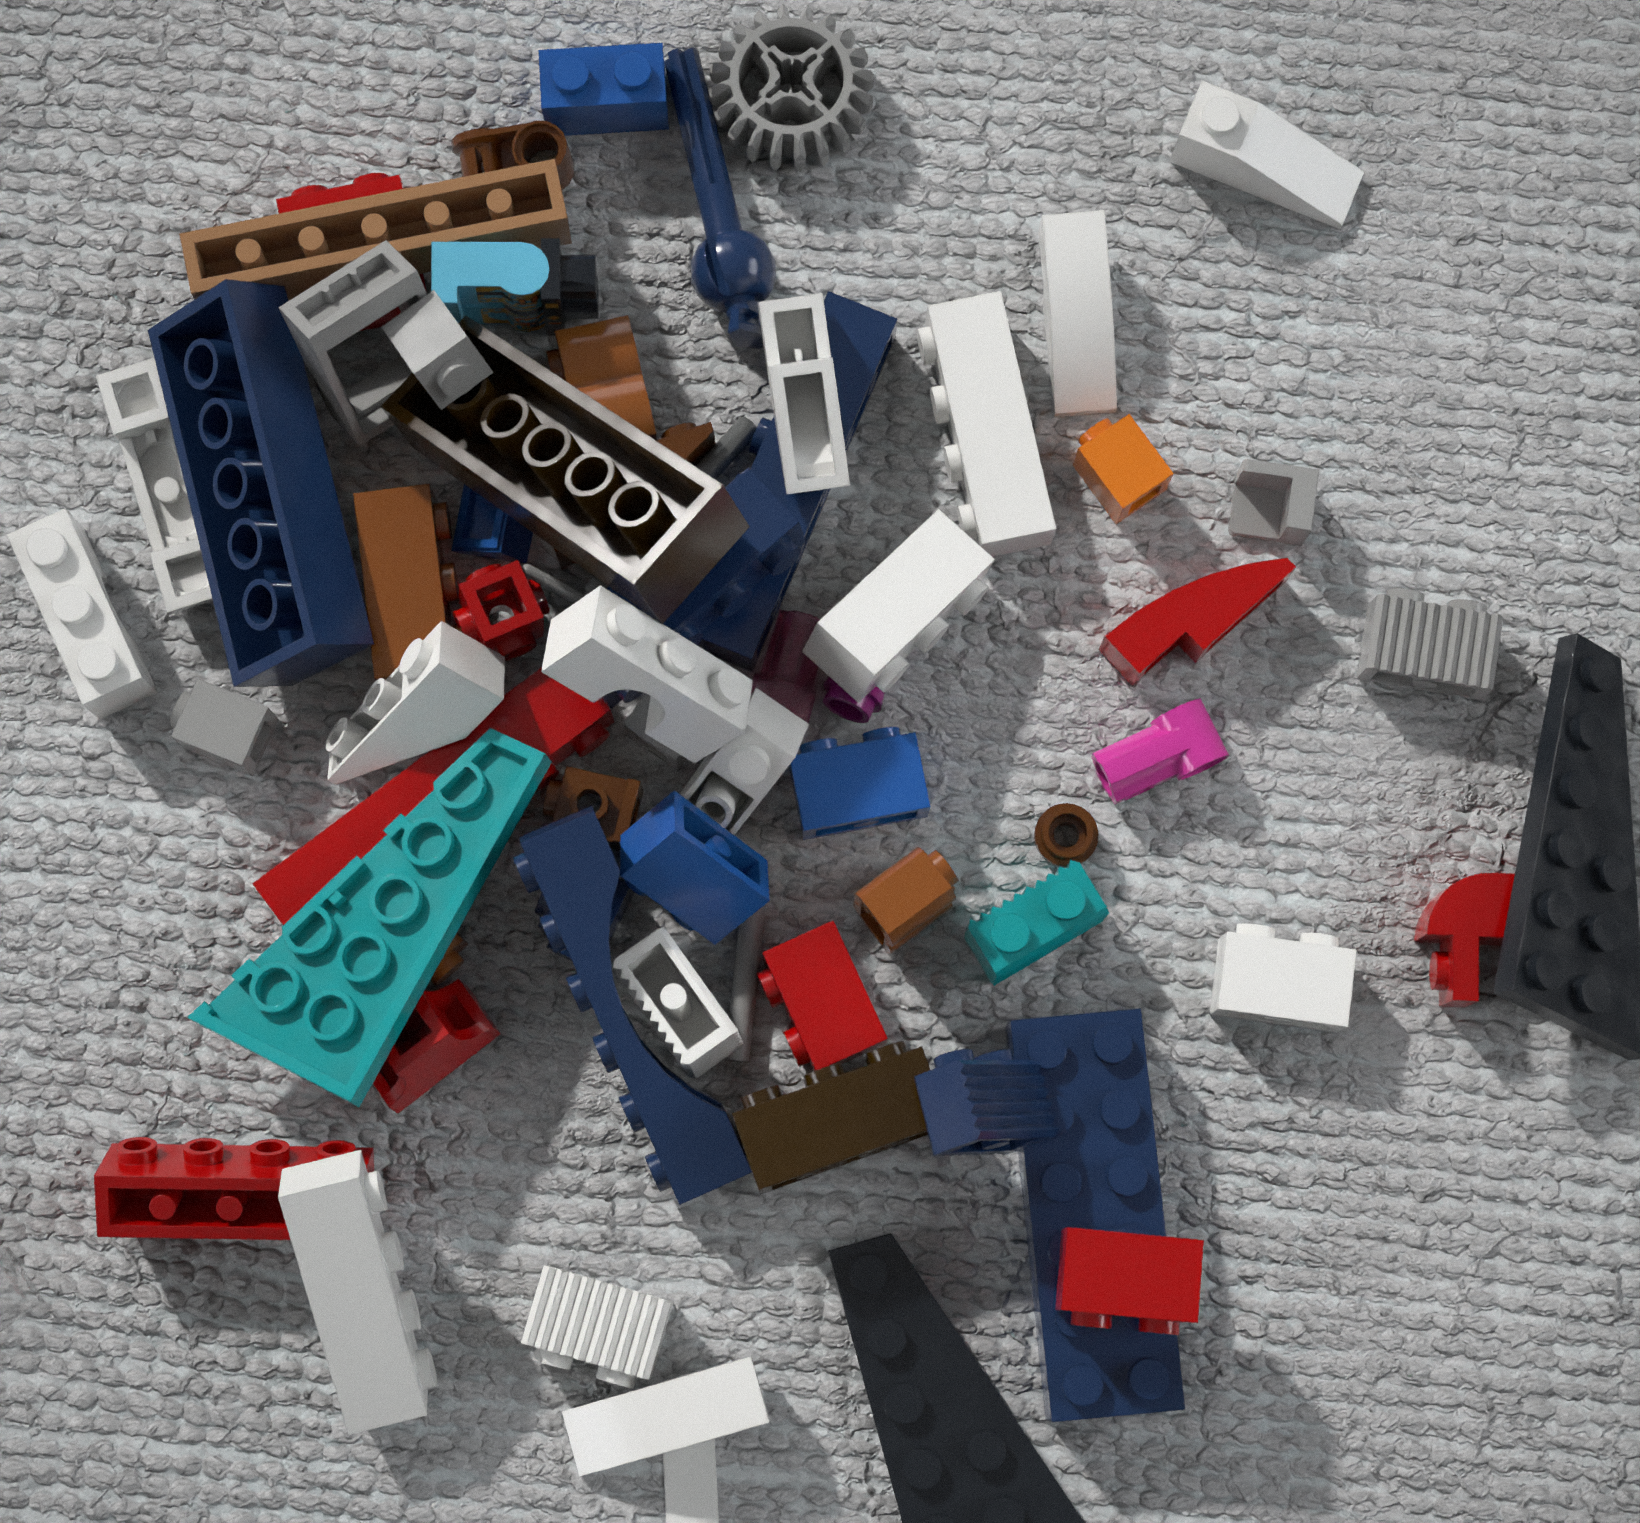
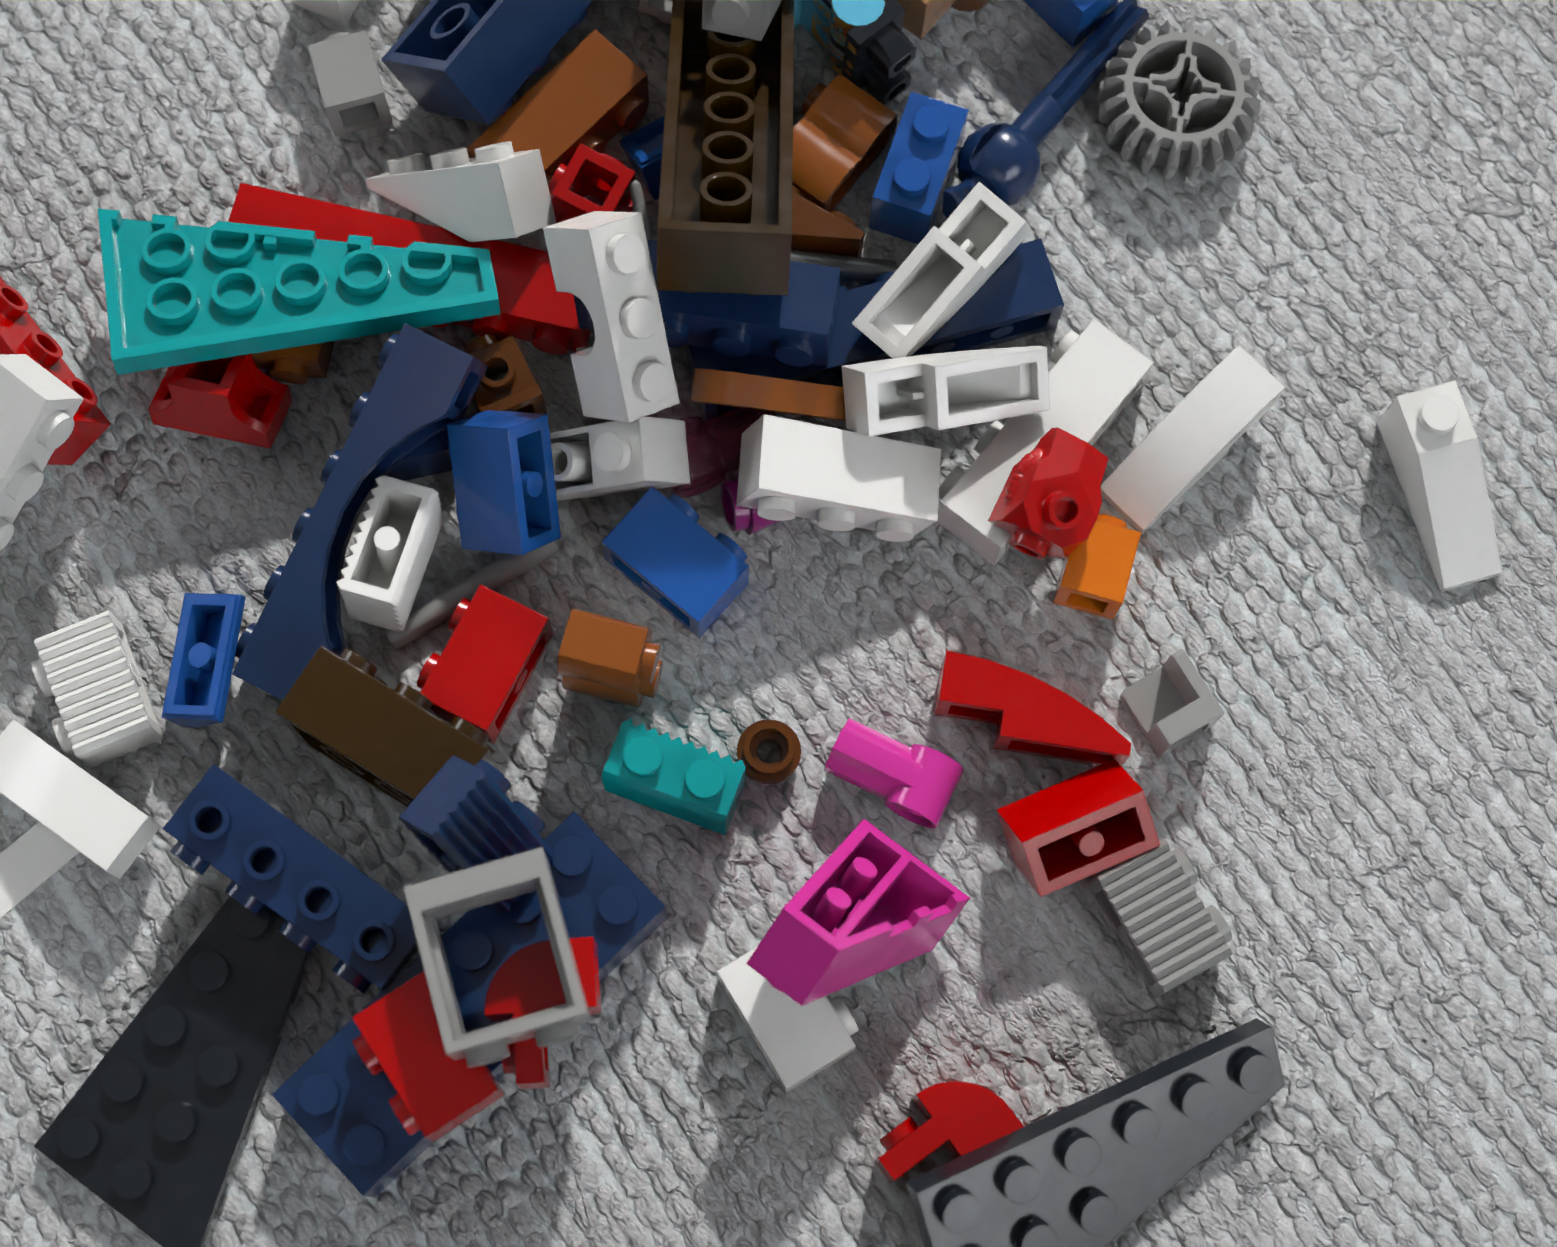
camera: 50 degrees right, 5 degrees down
(643, 1217) = (203, 659): none -> blue slope
(683, 335) = (917, 168): none -> blue brick
(814, 582) = (767, 394): none -> dark orange beam
(896, 1275) = (296, 877): none -> dark blue brick
(901, 468) = (945, 389): none -> white slope
(1053, 457) = (1052, 496): none -> red hand
(1137, 1155) = (531, 984): none -> red brick
(1192, 1161) = (474, 889): none -> light grey window
(1259, 871) = (856, 918): none -> dark pink wedge
(1318, 650) = (1078, 827): none -> red brick

